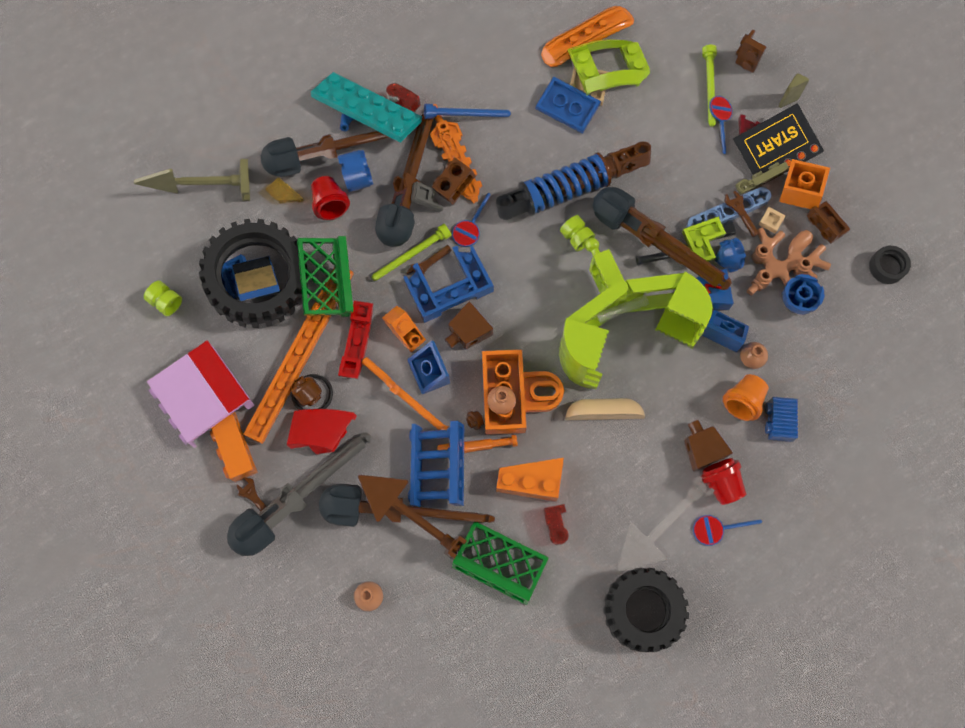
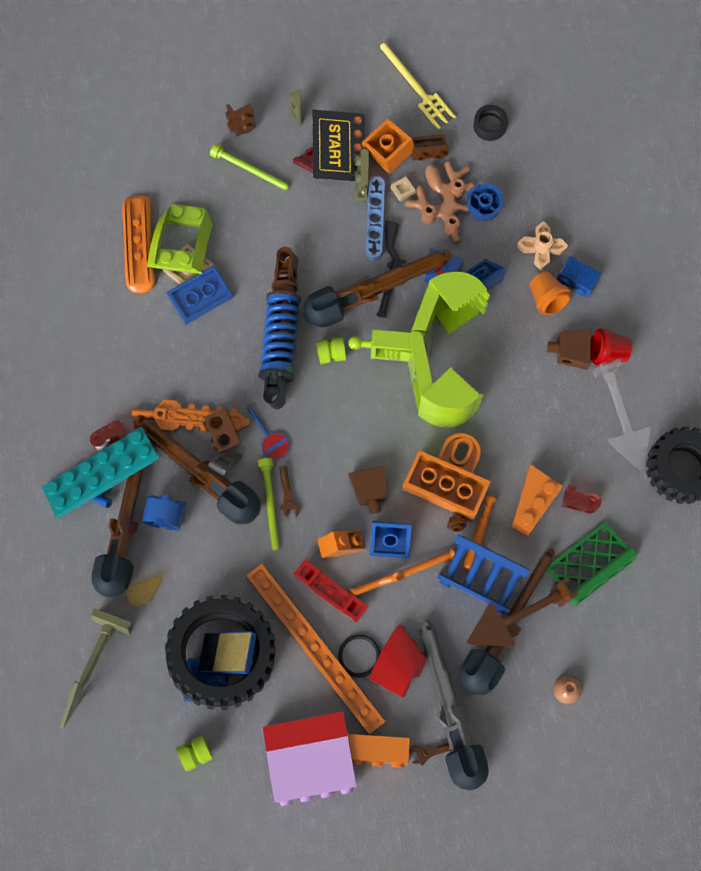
camera: 65 degrees left, 0 degrees up
(306, 391) = (357, 657): reddish brown head -> none
(328, 198) = (177, 550): red piece -> none
(341, 278) = (265, 572): green fence -> none
(432, 111) = (142, 415): blue piece -> none
(432, 304) = (332, 461): blue wedge -> none
(501, 400) = (456, 489): nougat brick -> none
(605, 409) = (499, 411): tan brick -> none
(699, 235) = (389, 254): lime plate -> none
(710, 530) = (641, 382): piece -> none
(722, 111) = (279, 173): piece -> none
(731, 255) = (418, 238): blue helmet -> none
(737, 205) = (375, 208): reddish brown piece -> none
(754, 355) = (514, 268): nougat brick -> none
(793, 370) = (542, 245): none -> light nougat plant
(877, 199) = (427, 99): none -> light yellow piece

